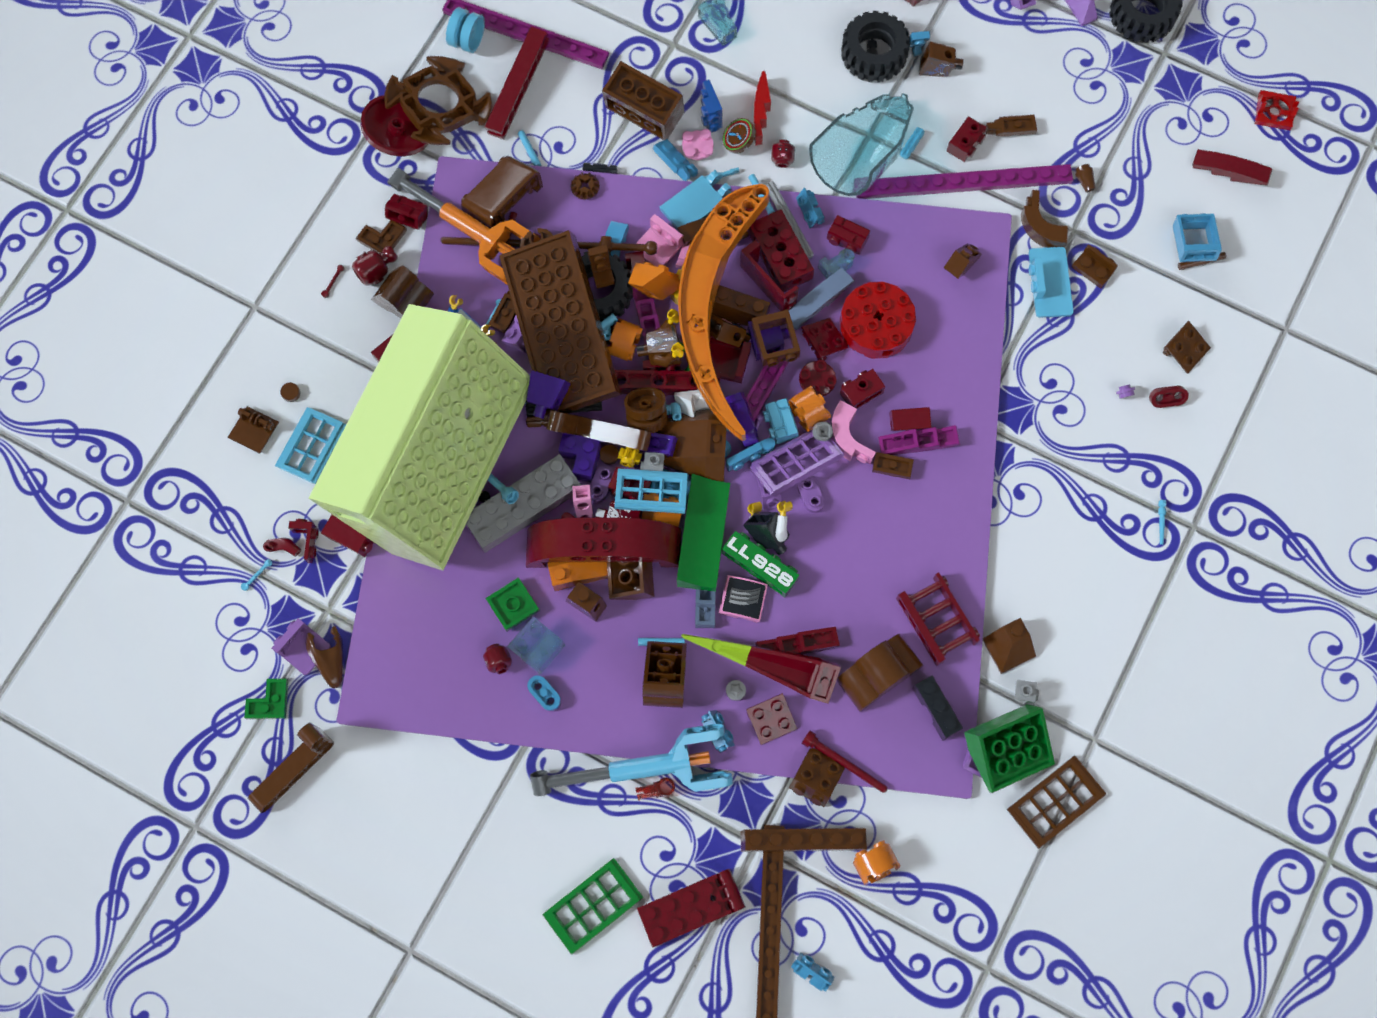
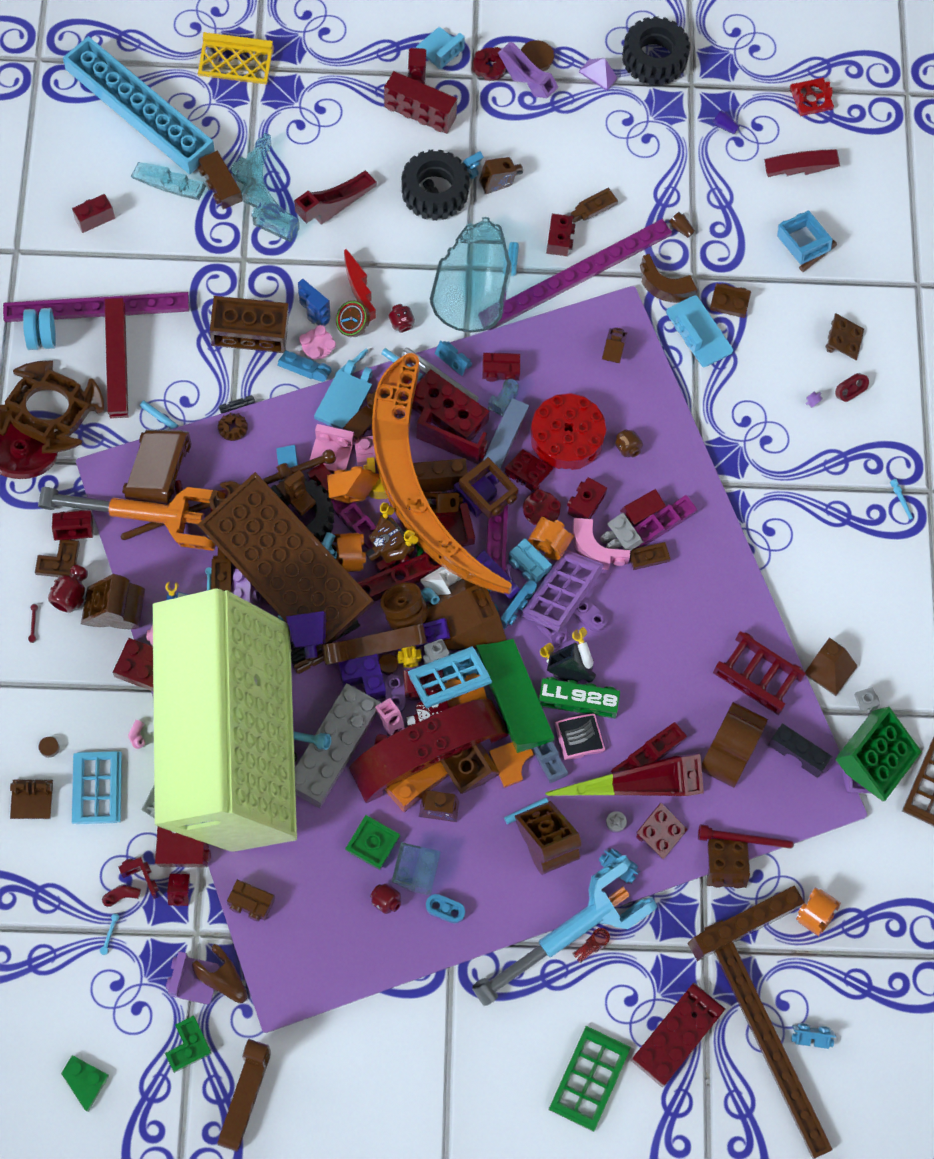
camera: 35 degrees left, 5 degrees down
(171, 688) = (84, 1081): none -> green wing
(331, 564) = (178, 889): none -> dark red bracket
(383, 604) = (250, 900): none -> reddish brown brick
(667, 593) = (509, 763): none -> orange tile
(774, 23) = (329, 202): none -> dark red arch
(822, 431) = (573, 553): light grey tile -> none
(880, 434) = (624, 532): none -> light grey hinge
(928, 355) = (628, 443): none -> reddish brown head
(1178, 100) = (725, 122): none -> dark purple cone

